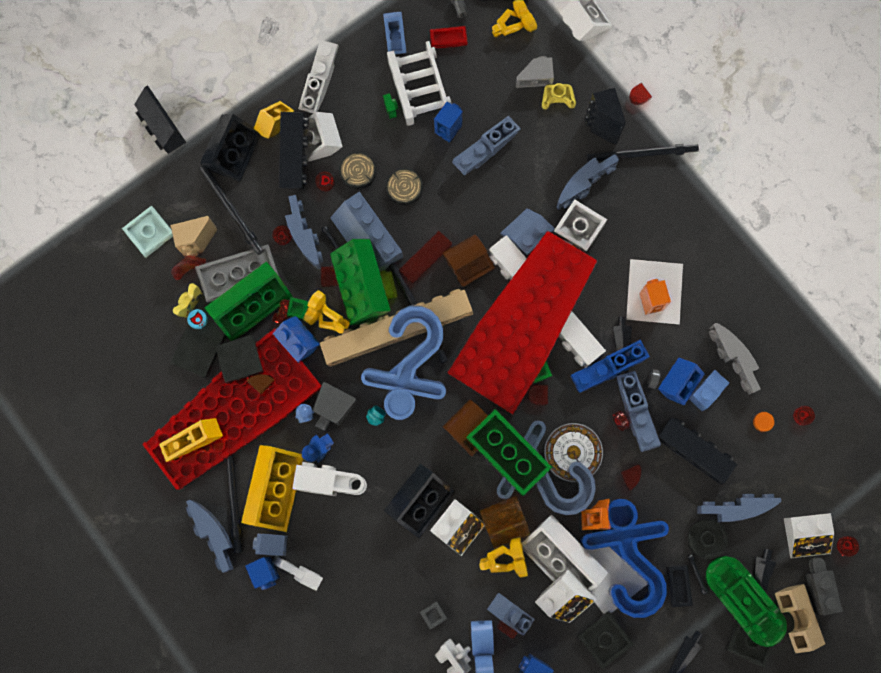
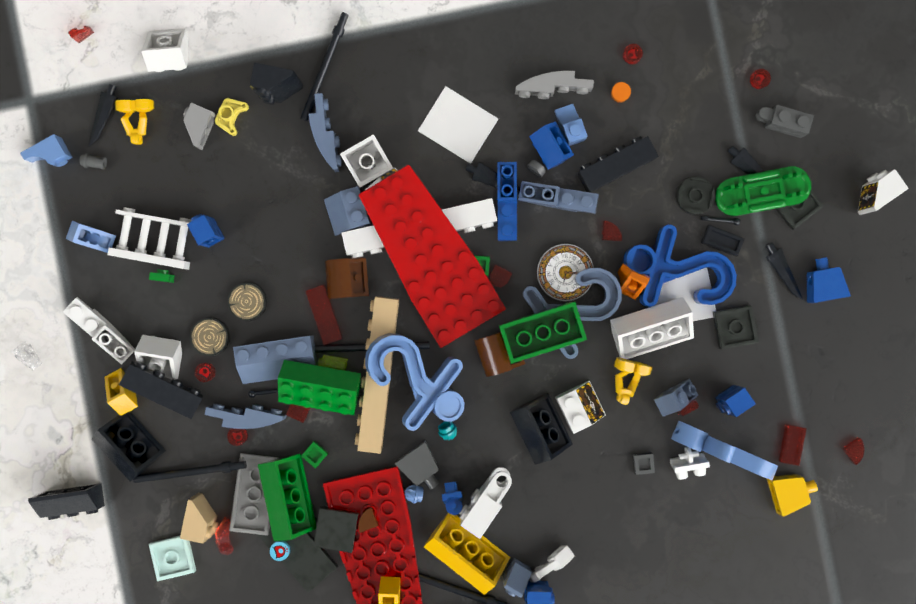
camera: 65 degrees left, 10 degrees up
(188, 301) = (258, 552): light yellow piece -> none
(282, 313) = (312, 470): clear red tile -> none
(296, 339) = (343, 469): blue brick -> none
(314, 313) = (326, 438): yellow piece -> none
(448, 37) = (120, 188): red tile -> none
(487, 146) = (246, 206): sand blue slope -> none
(504, 522) = (596, 363): clear orange slope -> none
(565, 598) = (686, 344): white slope -> none
(621, 420) = (559, 216): clear red tile -> none
(639, 95) = (267, 39): clear red tile -> none
(655, 296) = (465, 128): orange brick -> none
(745, 507) = (687, 147): sand blue slope -> none
(806, 632) = (814, 154): tan arch -> none
(809, 535) = (735, 106): white slope -> none

